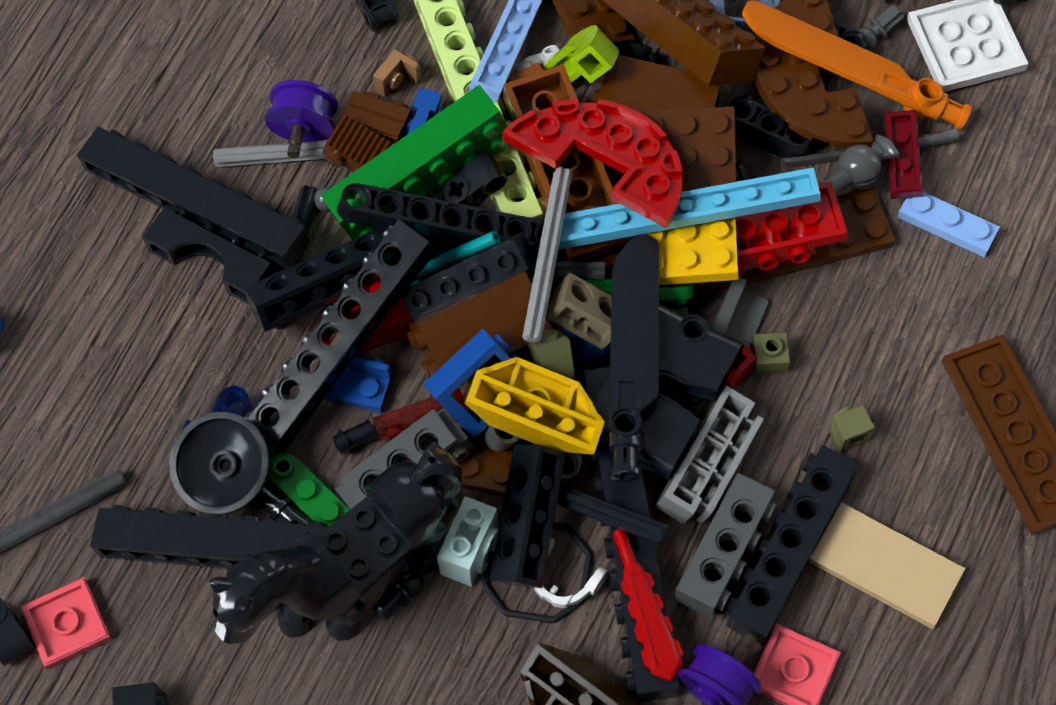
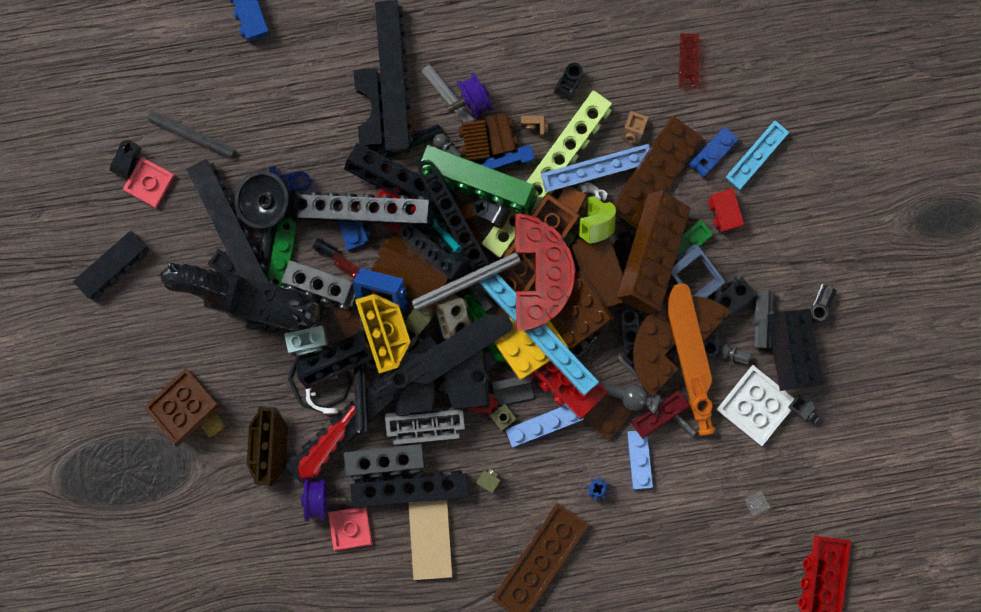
camera: 55 degrees right, 20 degrees up
(817, 307) = (541, 425): none -> light blue plate
(956, 302) = (602, 489): none -> blue gear

